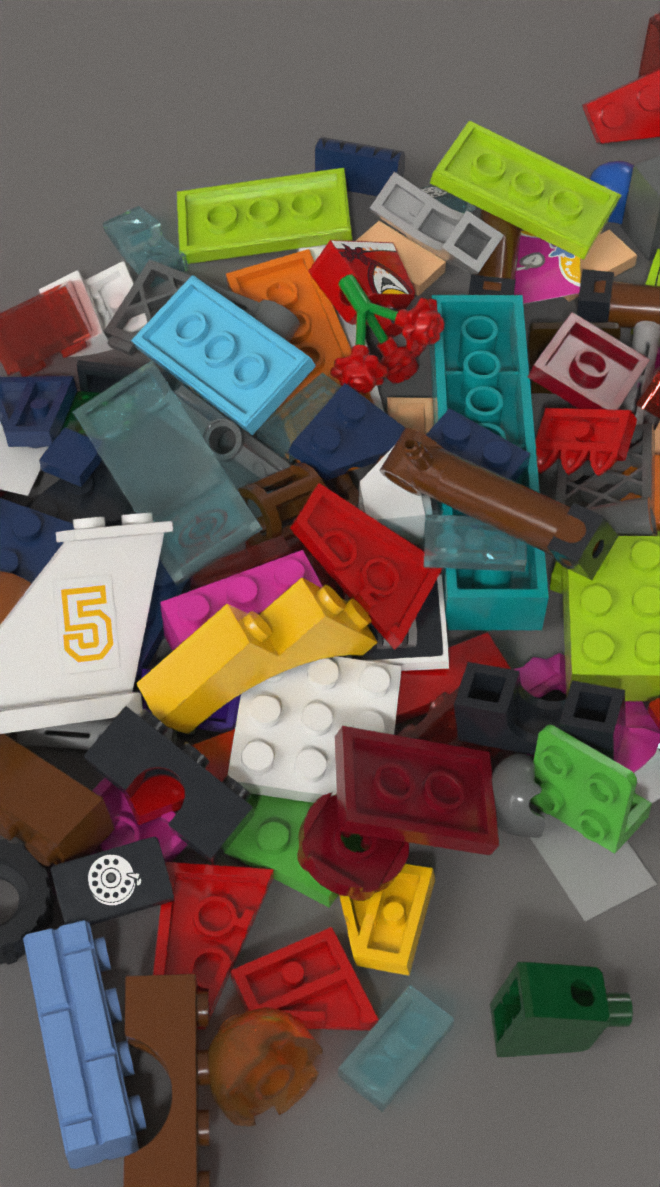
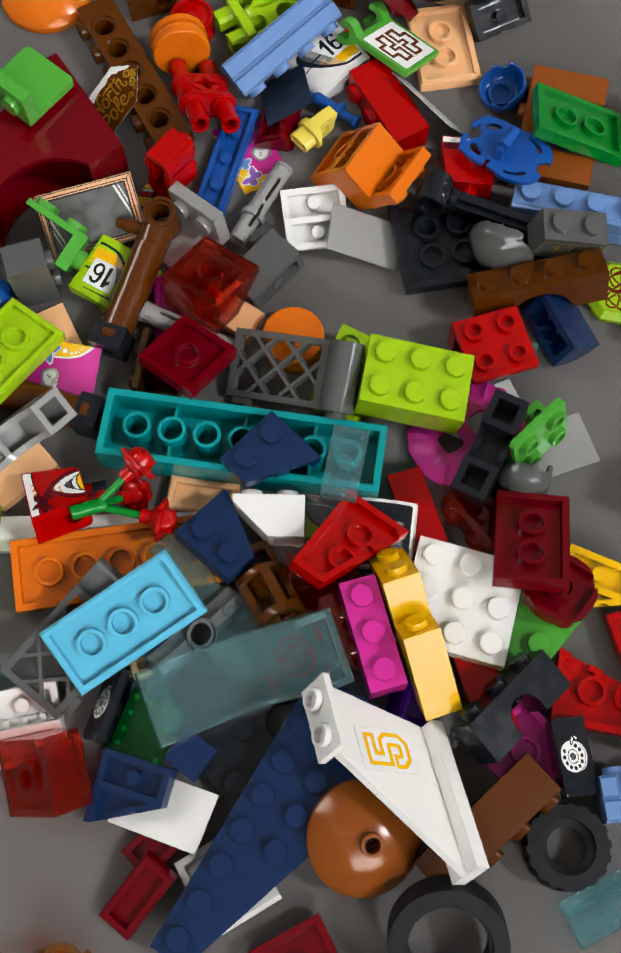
camera: 80 degrees left, 15 degrees up
(570, 534) = (282, 482): reddish brown piece -> none
(582, 436) = (248, 375): red plate -> none

